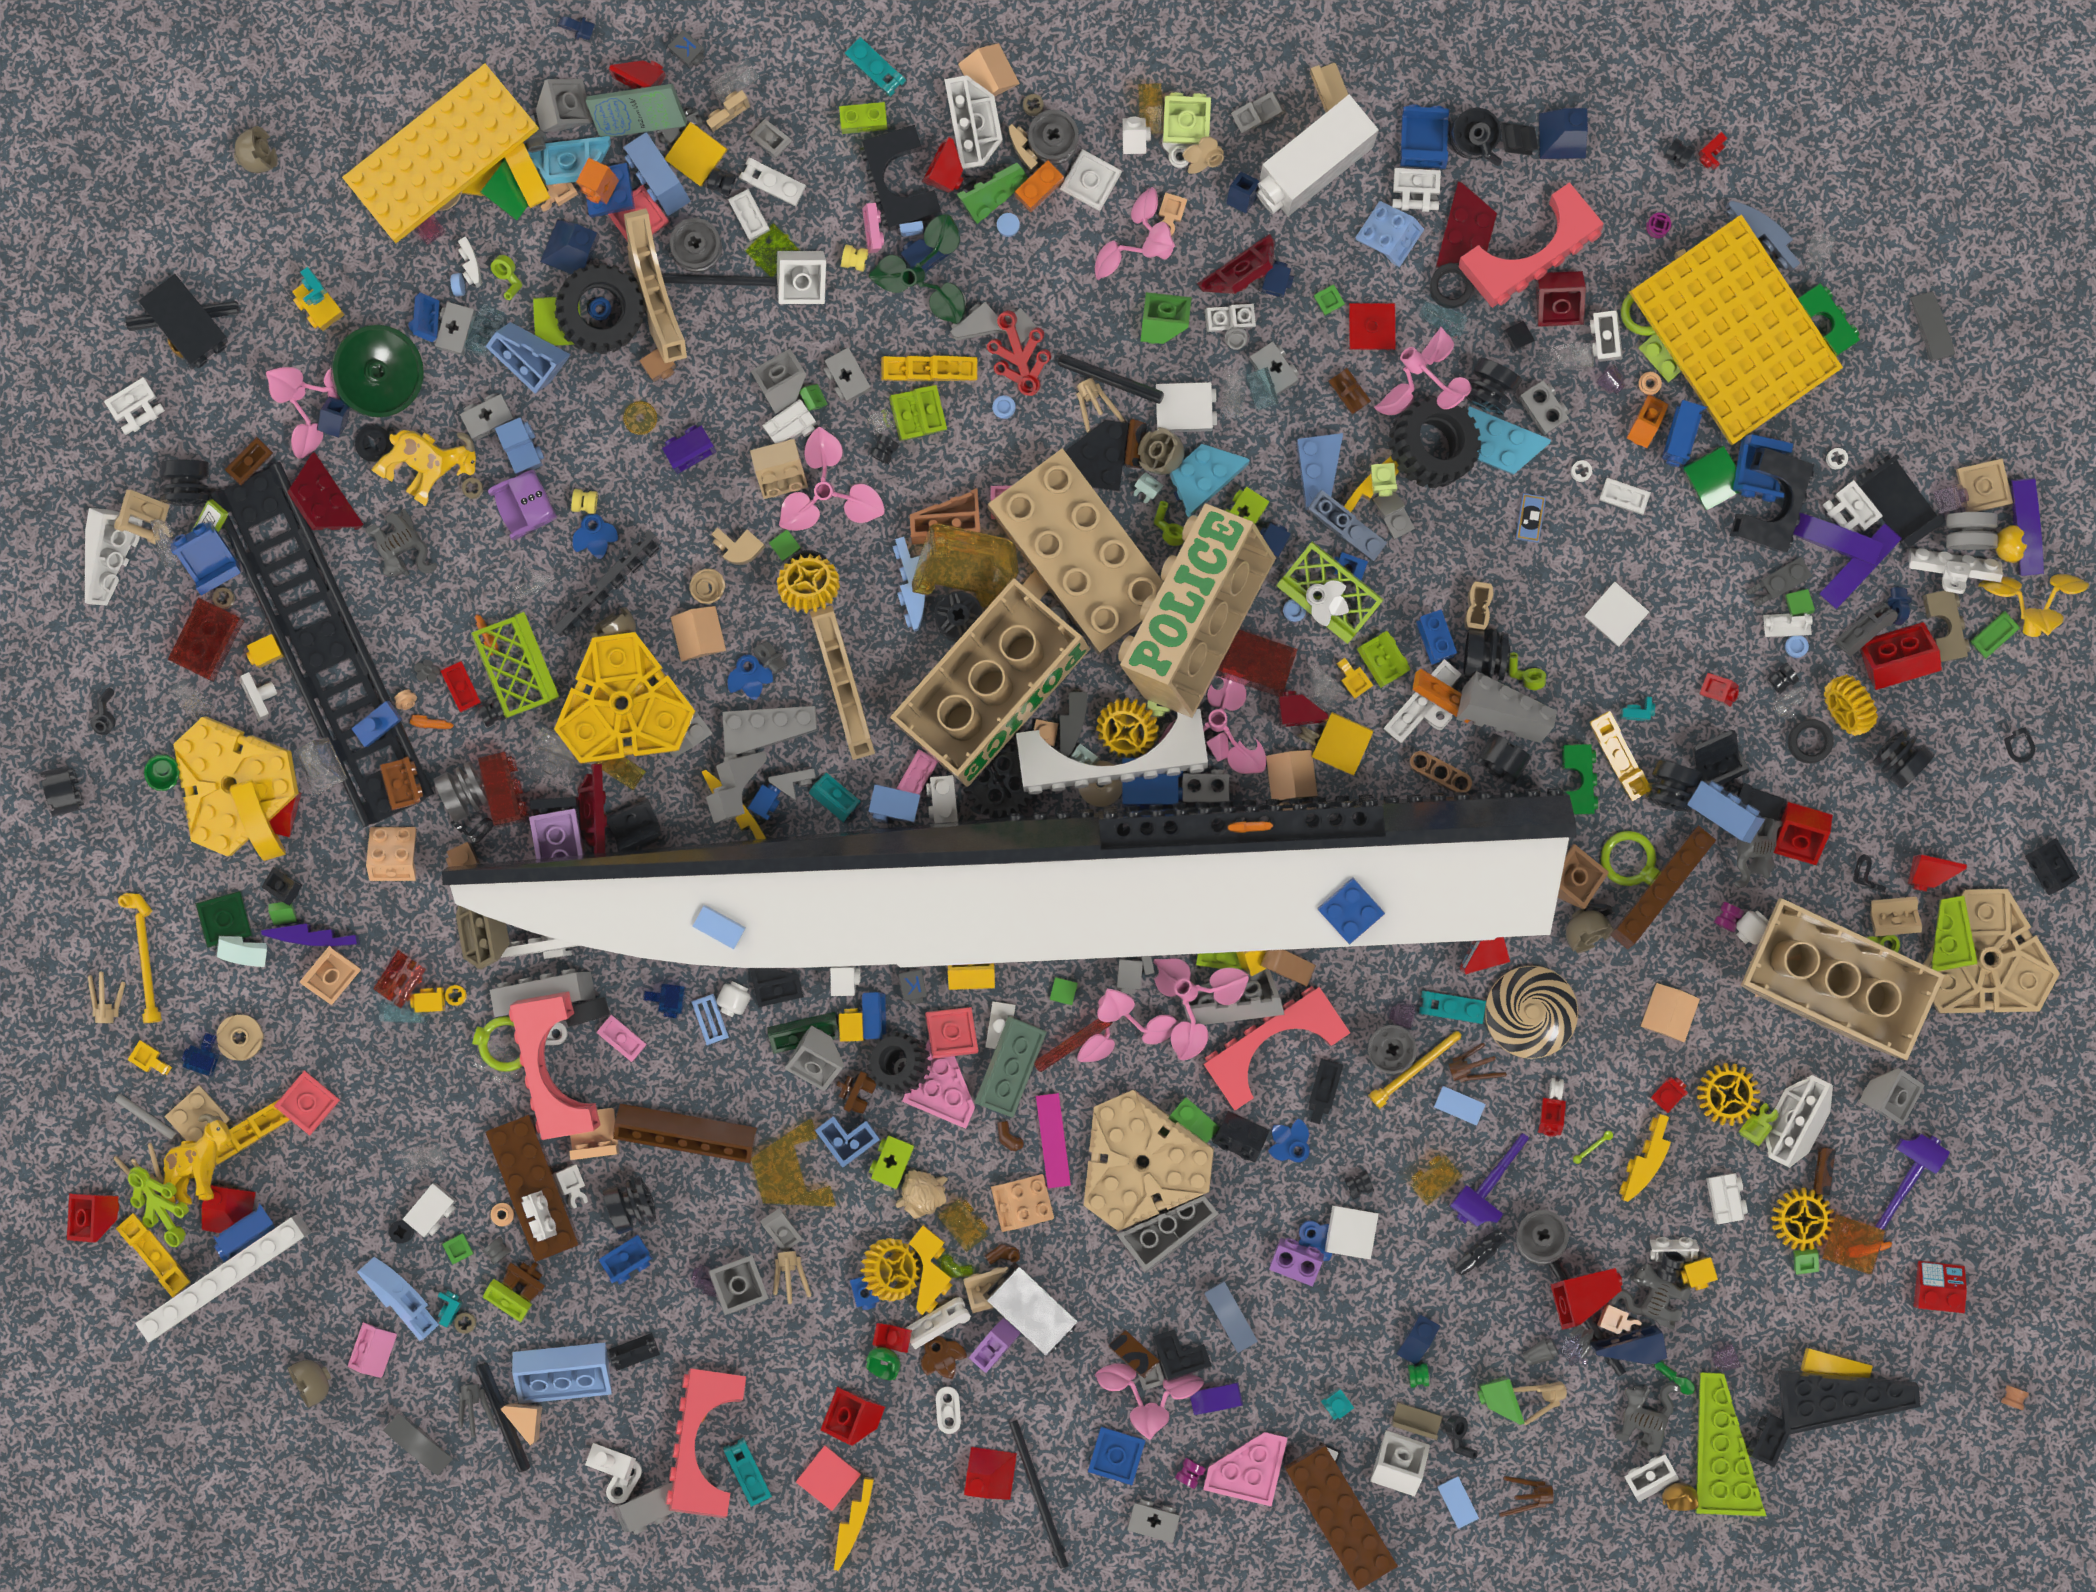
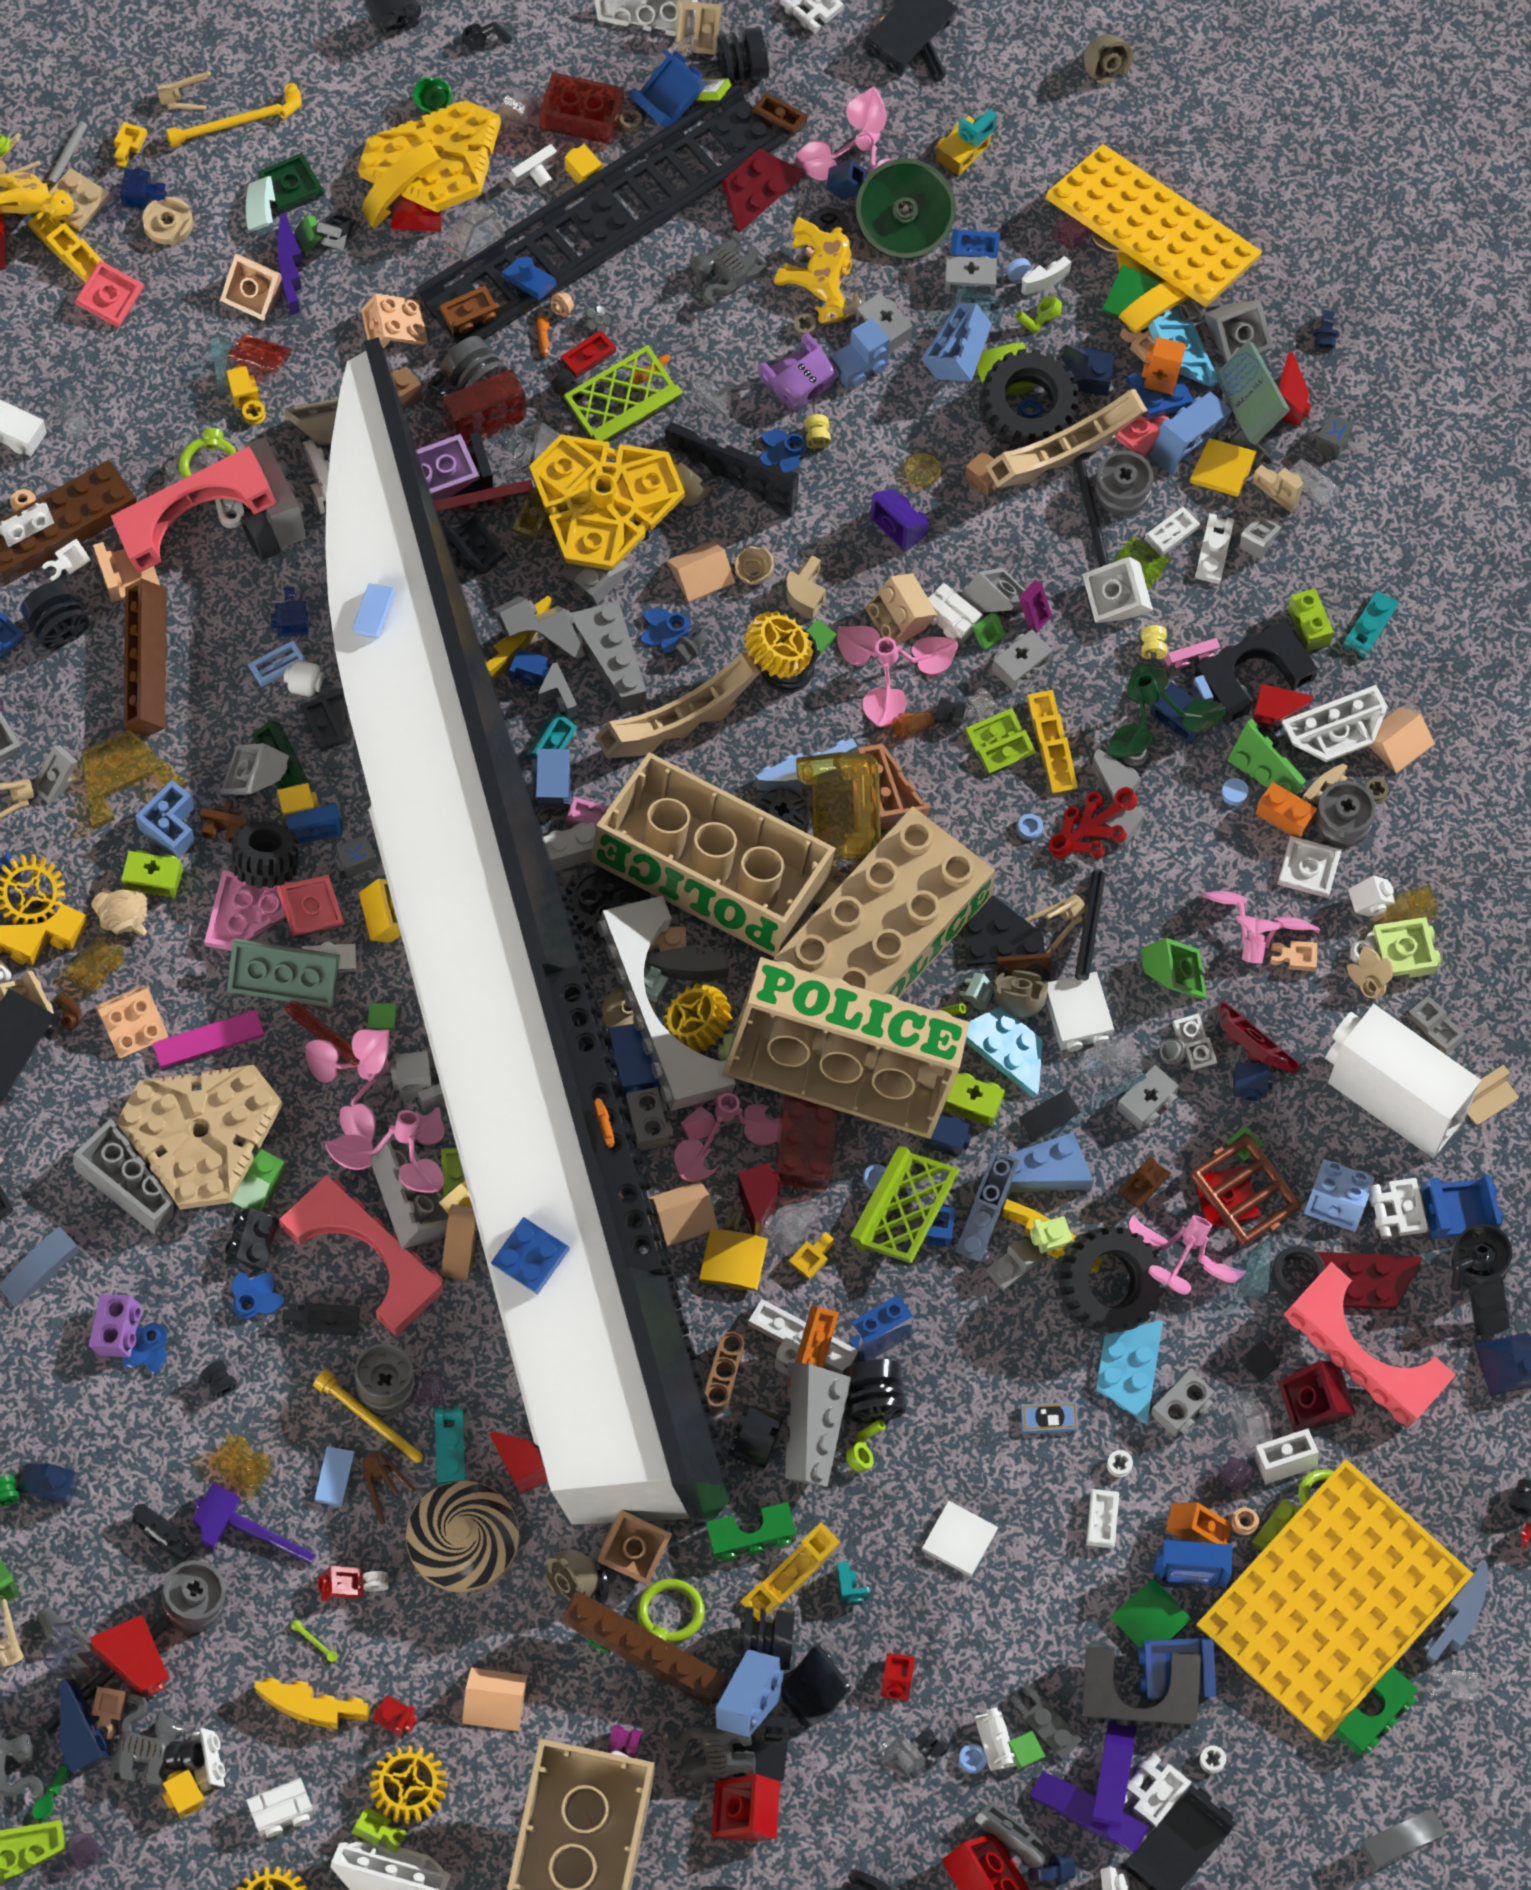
camera: 70 degrees right, 20 degrees down
(621, 1038) = (238, 579): bright pink plate -> none
(721, 181) = (1201, 494): black wheel -> none
(803, 352) = (1035, 606): none -> magenta plate
(844, 980) = (347, 779): white brick -> none
(886, 484) = (911, 723): none -> clear orange cone
(954, 1270) = (41, 963): clear neon green arm -> none
(1007, 1139) = (201, 989): reddish brown arm -> none
(1243, 192) = (1333, 1017): dark blue brick -> none
(1271, 454) = (1049, 1115): none -> black slope
(1330, 603) = (893, 1204): white plate -> none
(1351, 1232) = (161, 1382): white tile -> none
(1372, 281) = (1229, 1216): none -> copper bar
(1384, 659) = (842, 1283): lime bracket -> none
(1479, 599) = (934, 1374): tan brick -> none
(1493, 382) = (1191, 1334): black wheel -> none
(1658, 229) = (1430, 1495): magenta wheel -> none
(1828, 741) = (858, 1818): black tyre -> none
(1850, 705) = (914, 1827): yellow gear -> none

